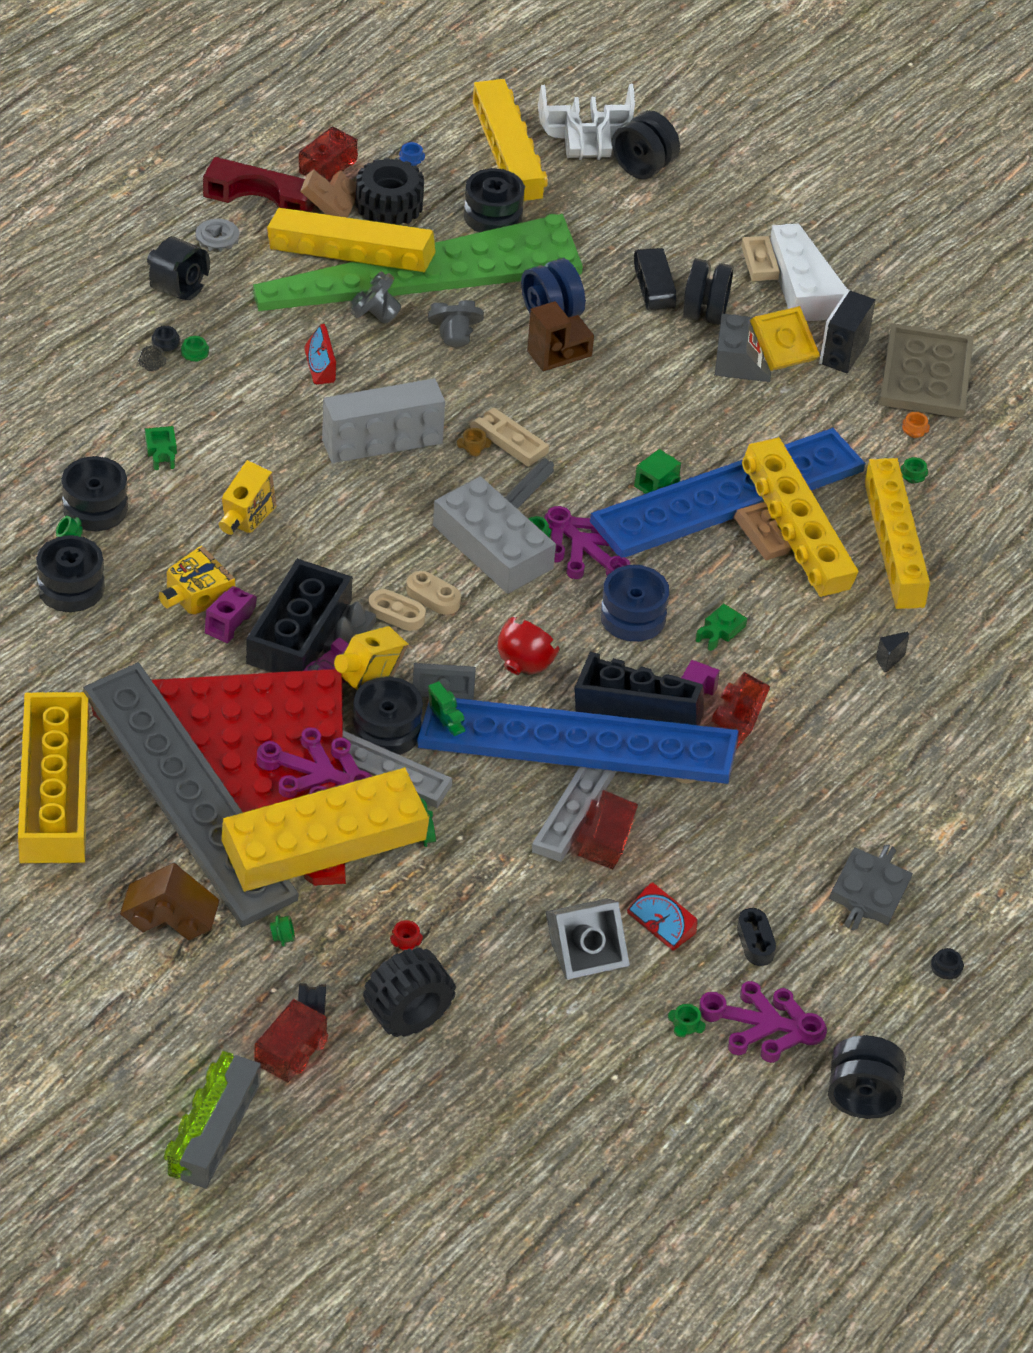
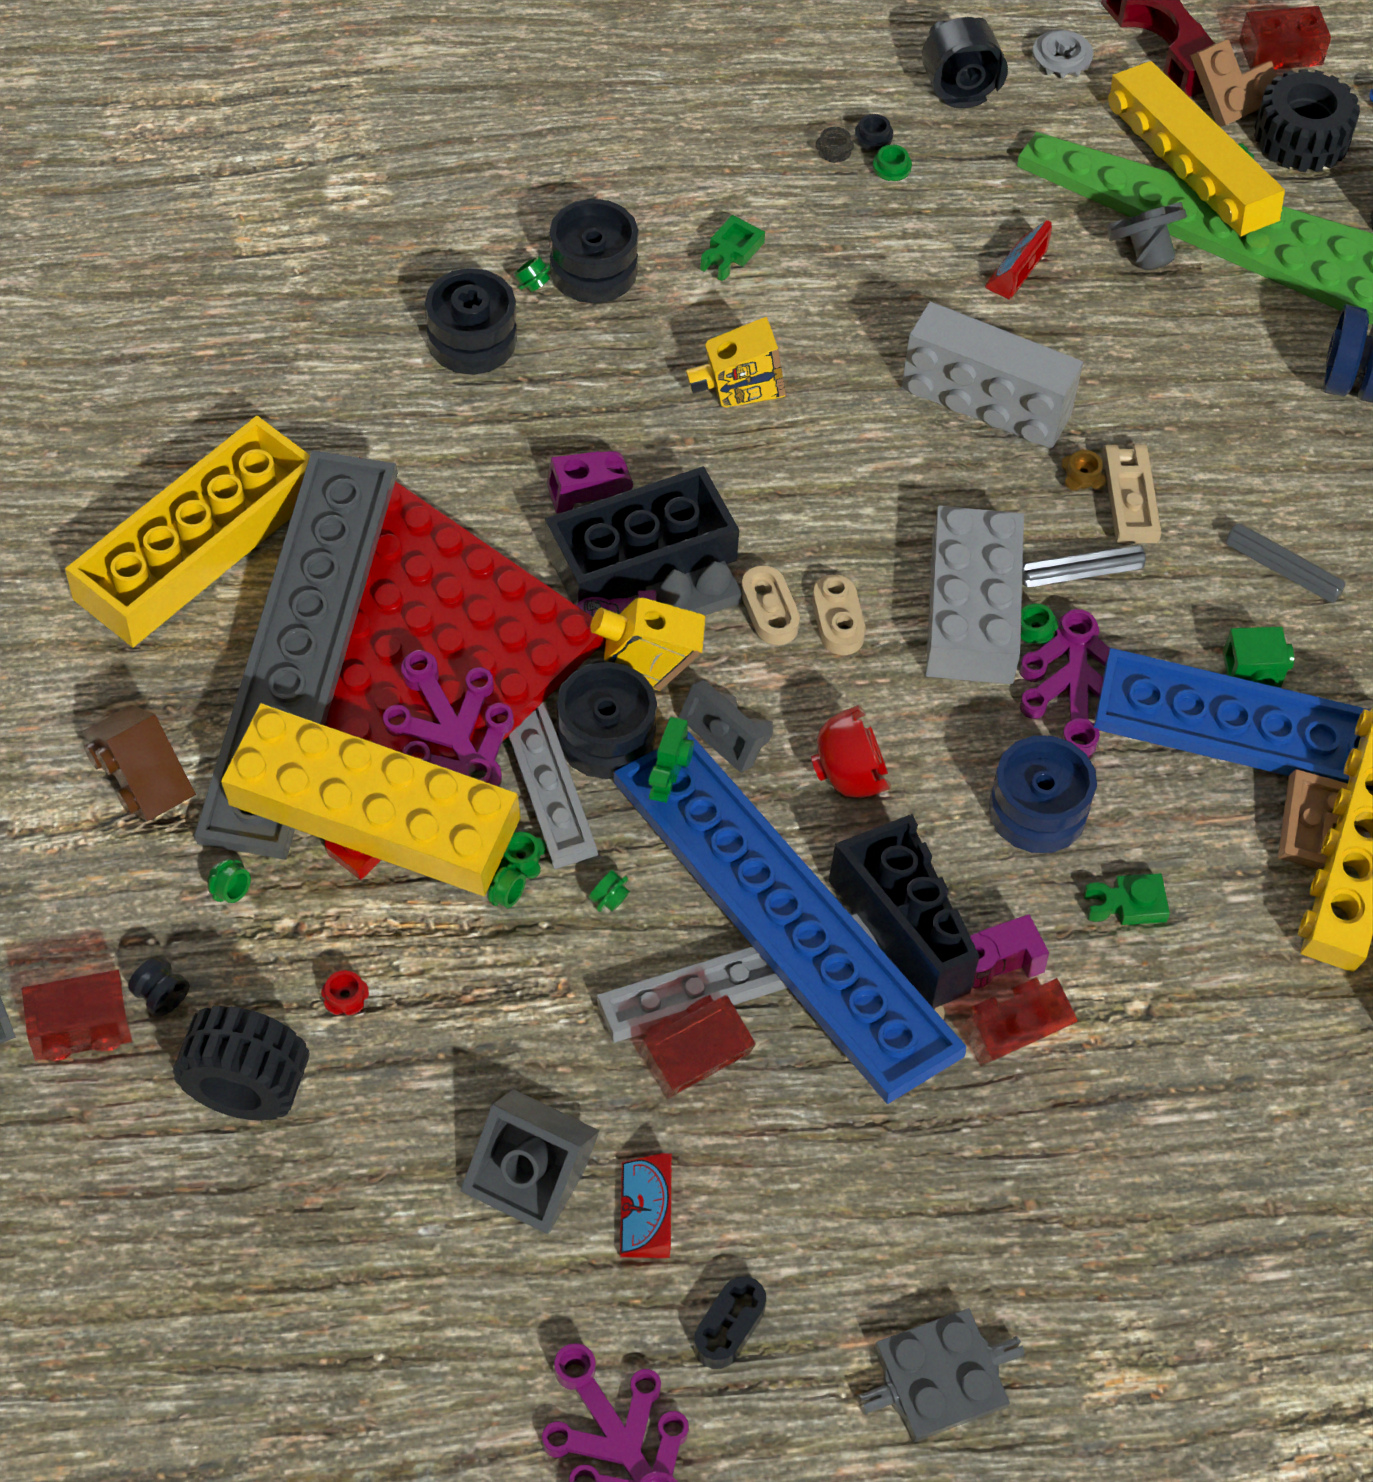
camera: 45 degrees right, 10 degrees up
(196, 582) = (589, 418): yellow torso -> none
(455, 321) = (1212, 316): dark grey plate -> none
(479, 796) = (610, 891): none -> green plate
(556, 338) = (1311, 416): reddish brown brick -> none
(618, 422) = (1285, 562): none -> dark grey axle
(688, 1013) = (525, 1344): green plate -> none
(891, 650) = (1309, 1091): black slope -> none

